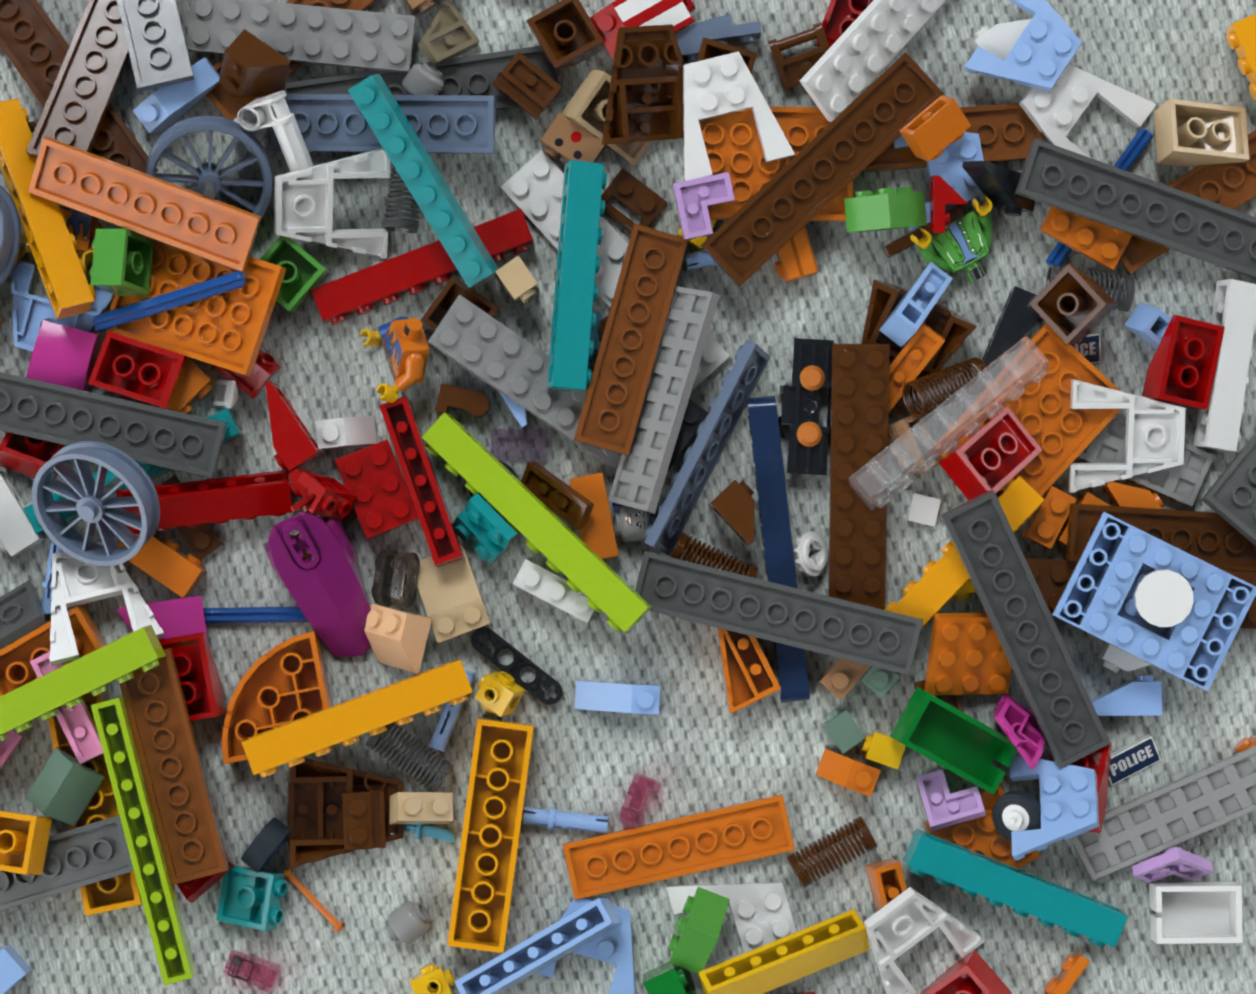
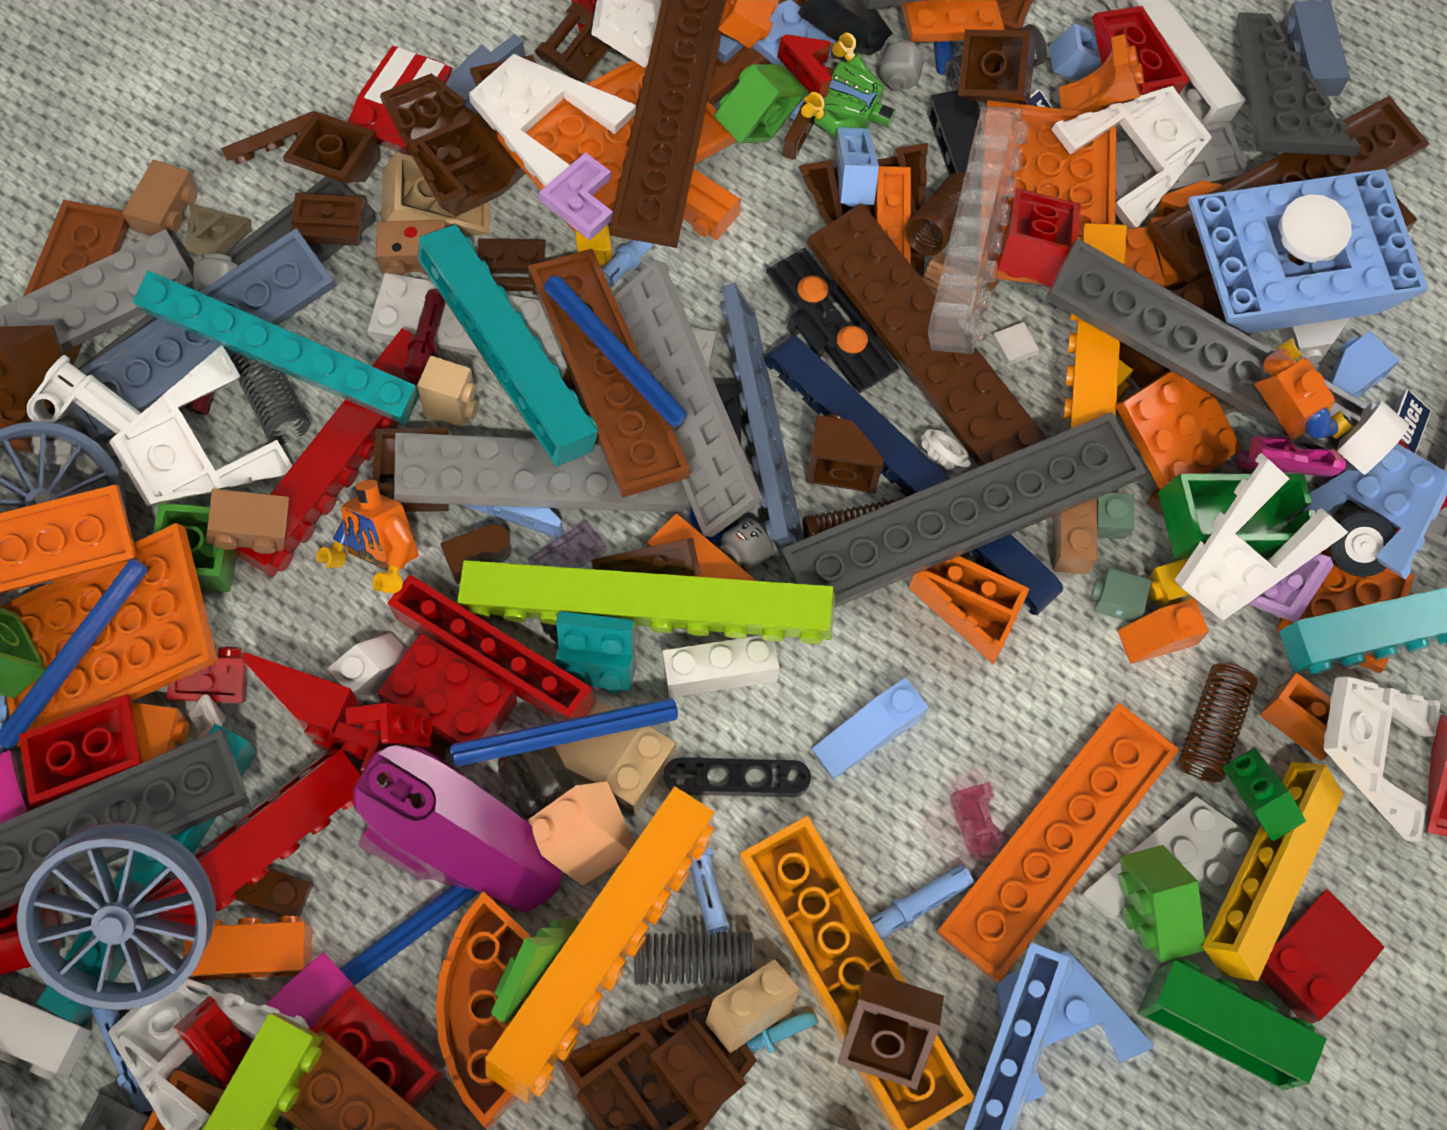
camera: 40 degrees left, 20 degrees down
(108, 610) = (213, 1040): none -> red hinge
(304, 703) = (529, 966): none -> bright green slope
(328, 289) = (247, 521): none -> medium nougat brick
(427, 570) = (563, 732): none -> blue axle
(484, 883) = (891, 1029): none -> reddish brown slope
(499, 693) = (753, 812): yellow brick -> none
(522, 236) = (423, 343): none -> dark red pin
(642, 334) = (615, 351): none -> blue axle
(812, 916) = (1264, 794): none -> green brick
(916, 773) = (1228, 571): none -> white wing
(1019, 242) = (901, 65): none -> light grey head
(1047, 698) = (1299, 395): none -> orange torso
(1079, 760) = (1372, 436): none -> white brick
(1132, 374) = (1111, 83): none -> orange arch

